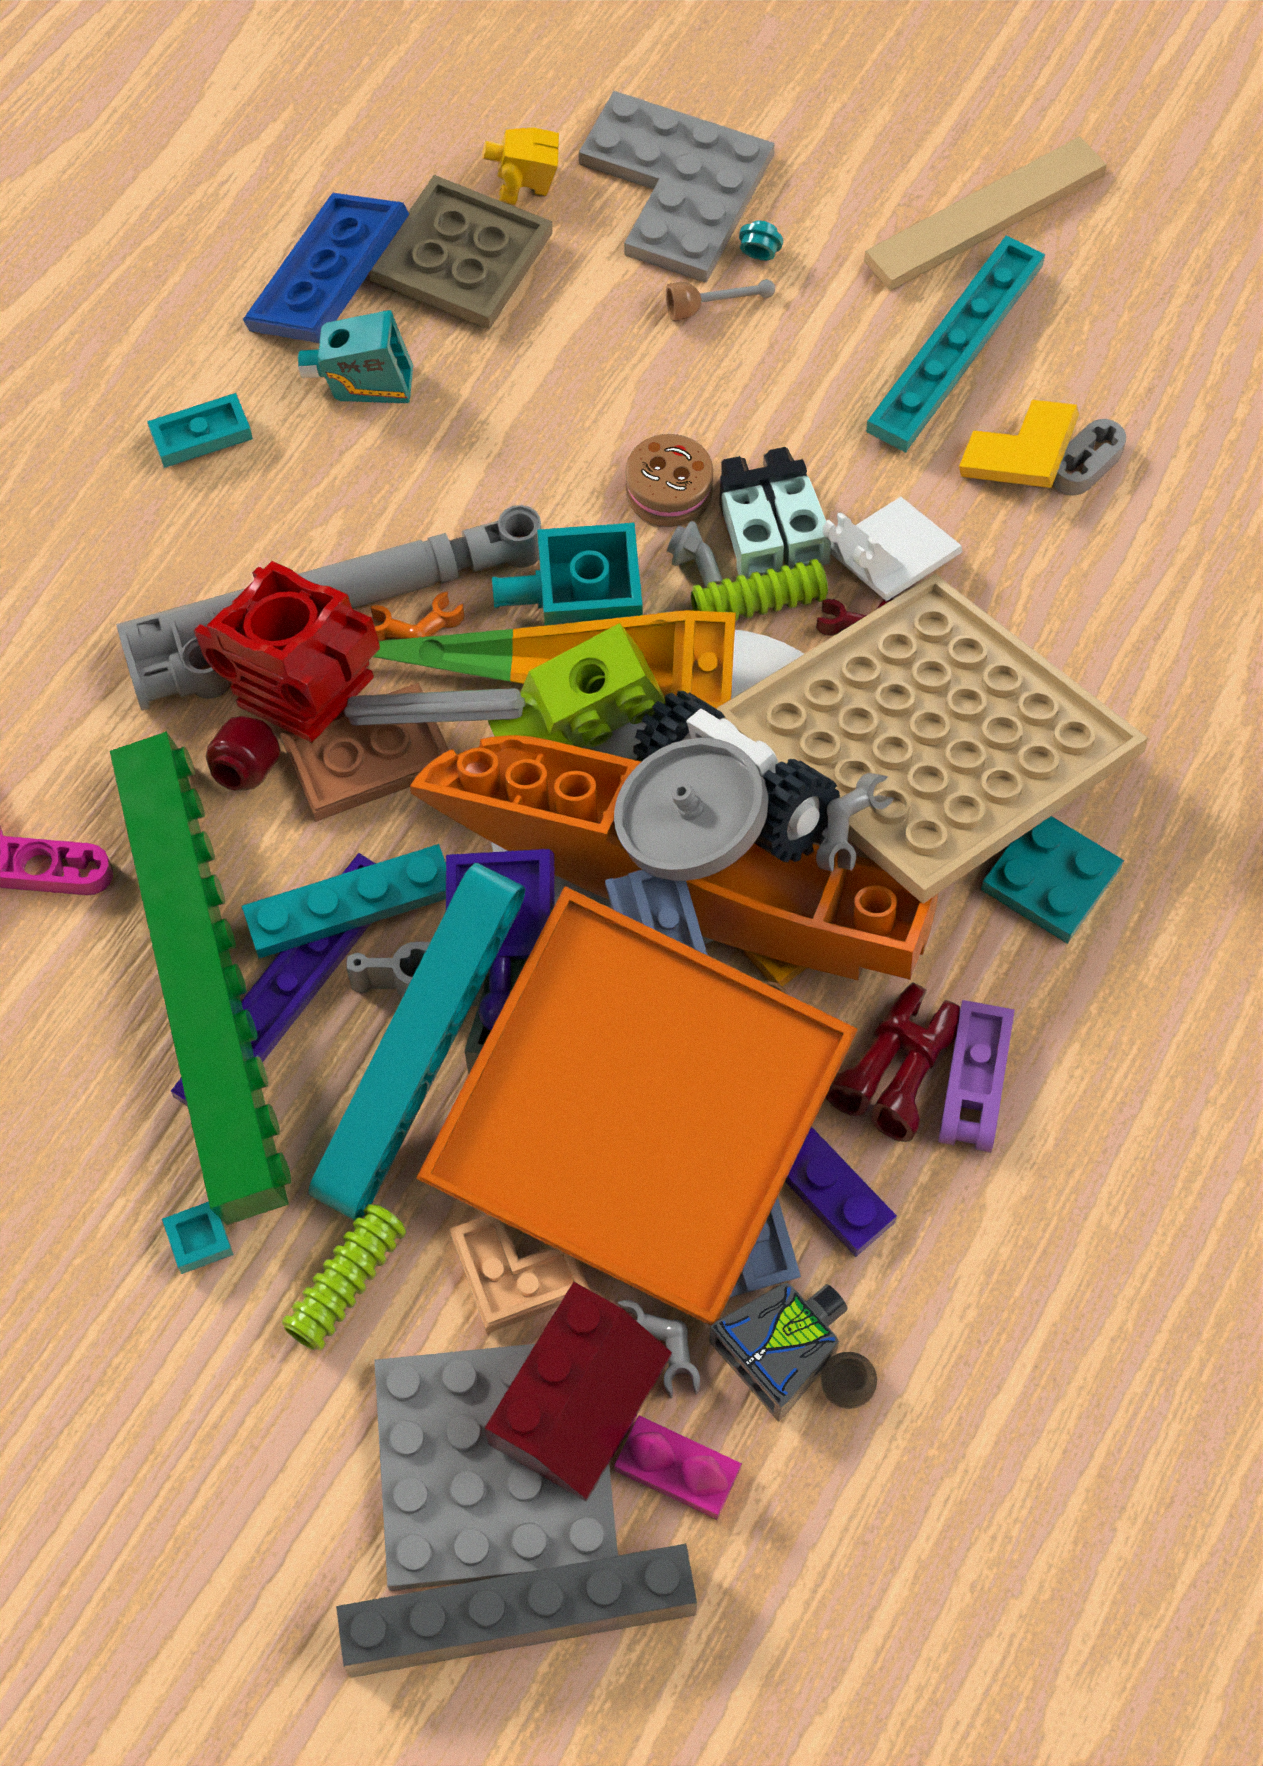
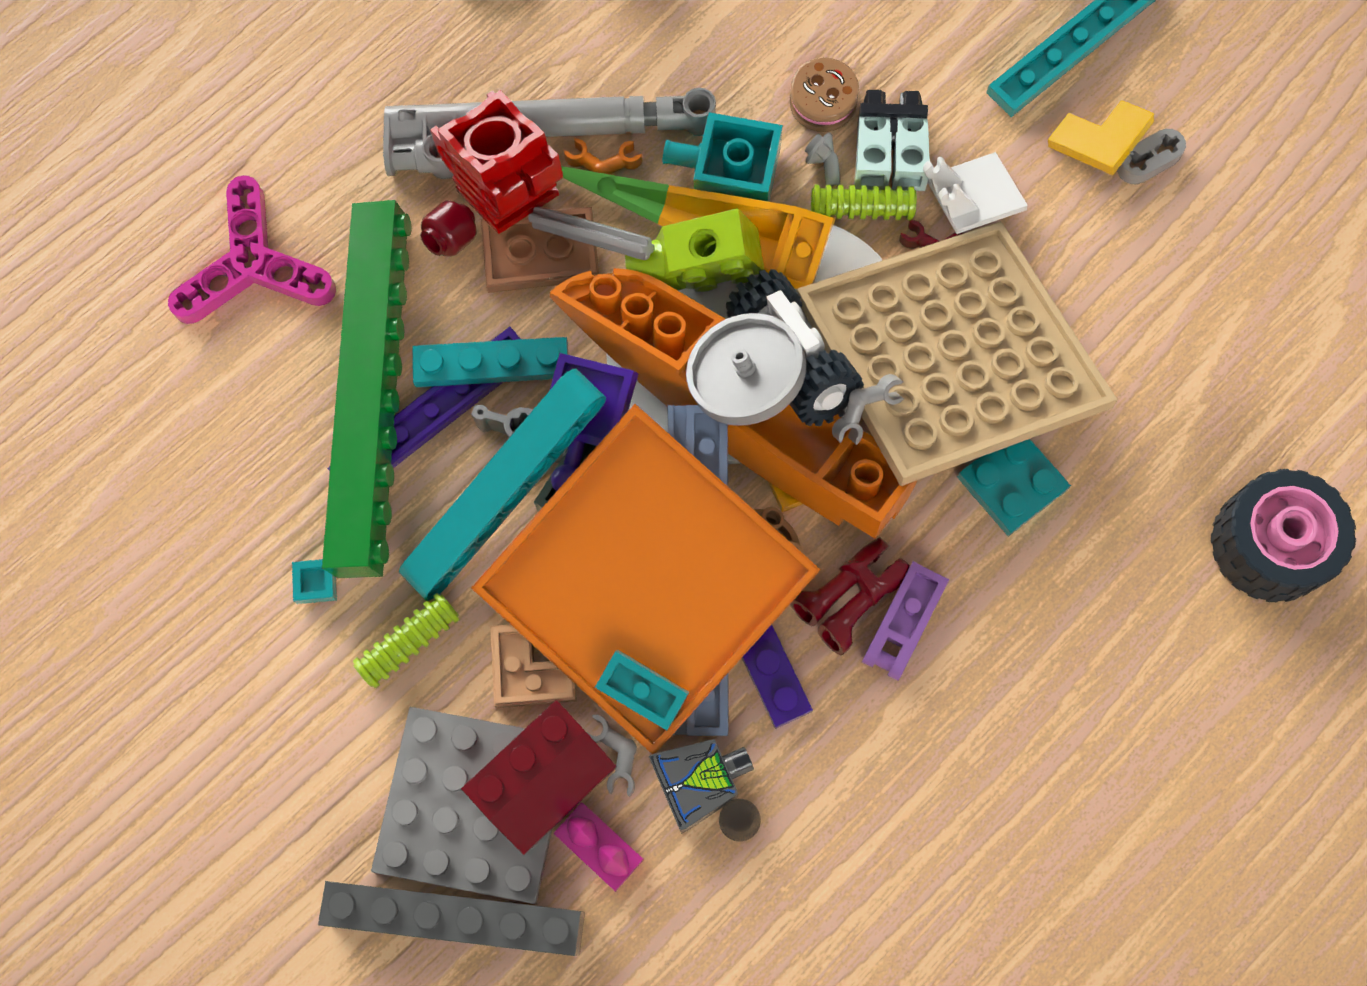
camera: 20 degrees right, 10 degrees up
(677, 1242) = (642, 689): none -> teal plate

